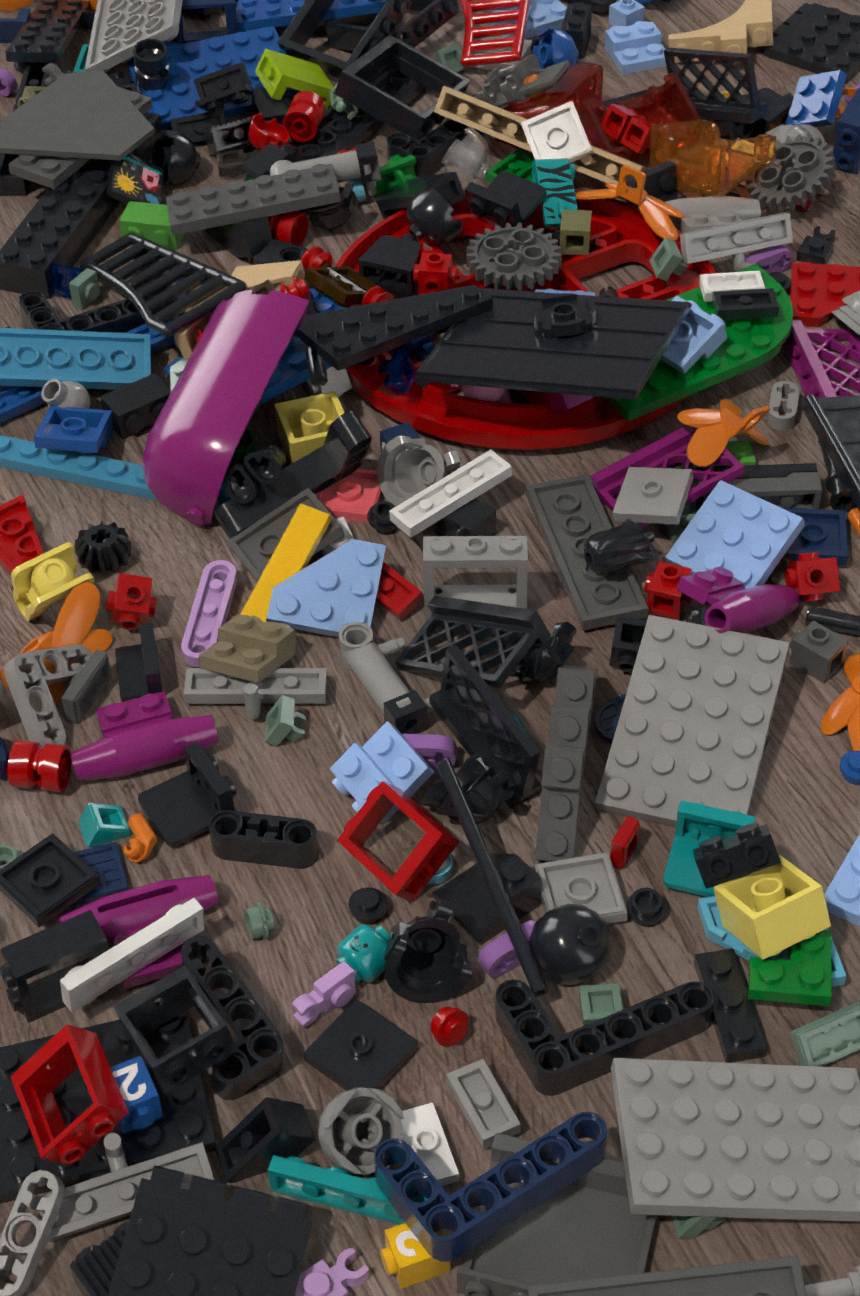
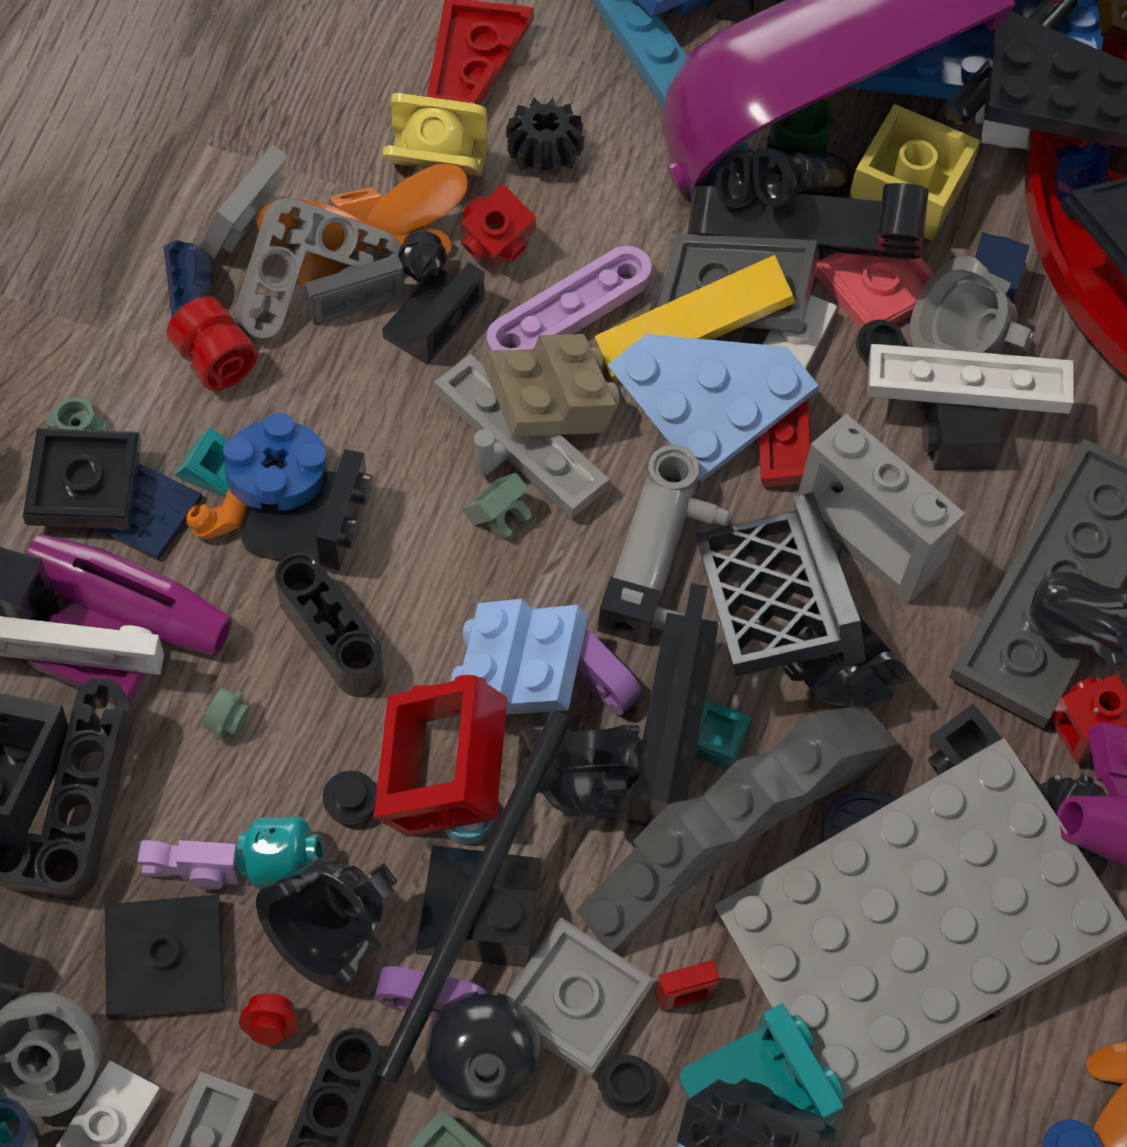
camera: 40 degrees right, 15 degrees up
(105, 640) = (422, 255): none -> black plate
(139, 738) = (344, 395): magenta plate -> none
(163, 788) = (269, 440): none -> blue plate

